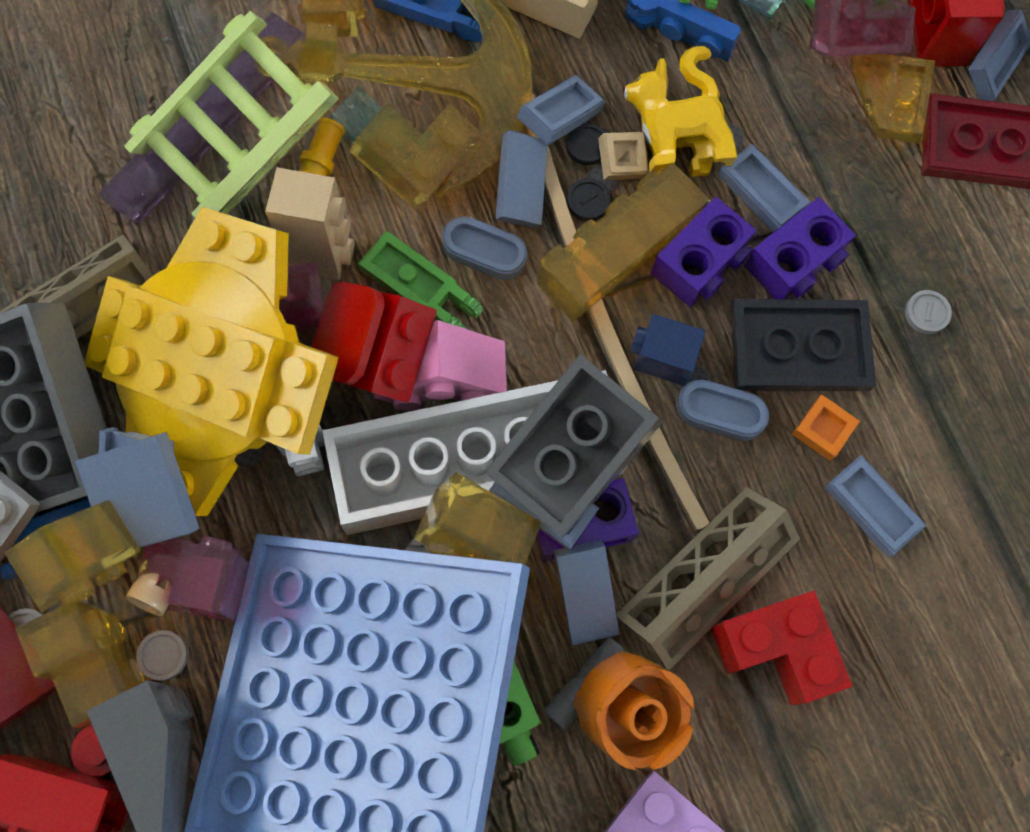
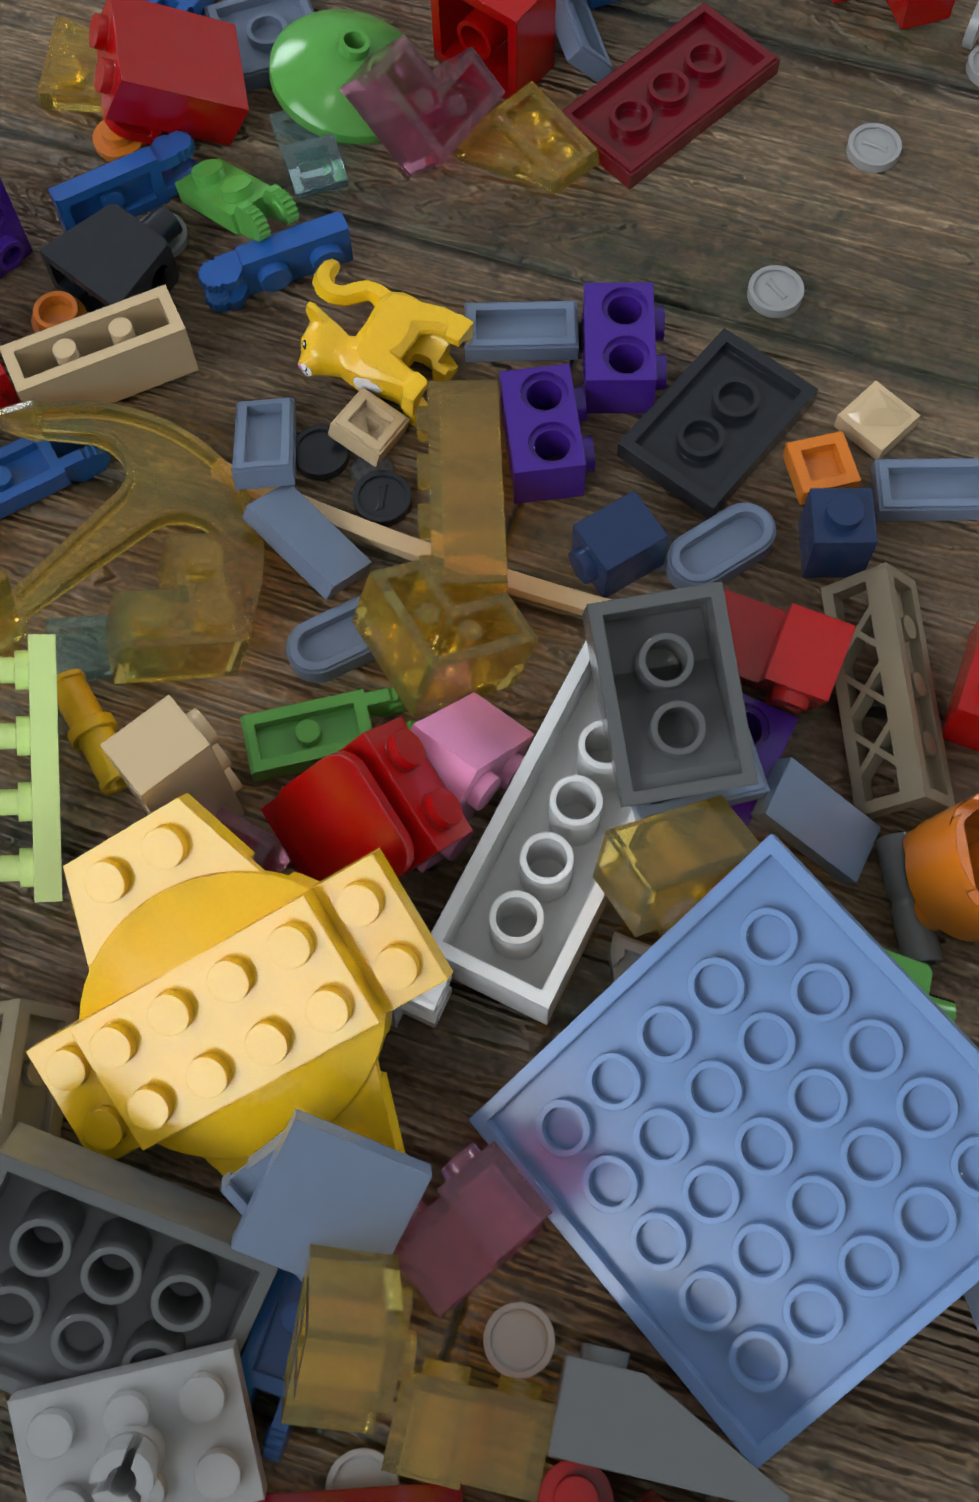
camera: 40 degrees left, 5 degrees down
(149, 596) = (456, 1283): tan hinge -> none
(509, 303) = (439, 648): none -> clear yellow brick
(671, 488) = (787, 652): none -> red brick
(786, 467) = (837, 532): none -> dark blue brick
(890, 437) = (876, 420): none -> tan tile

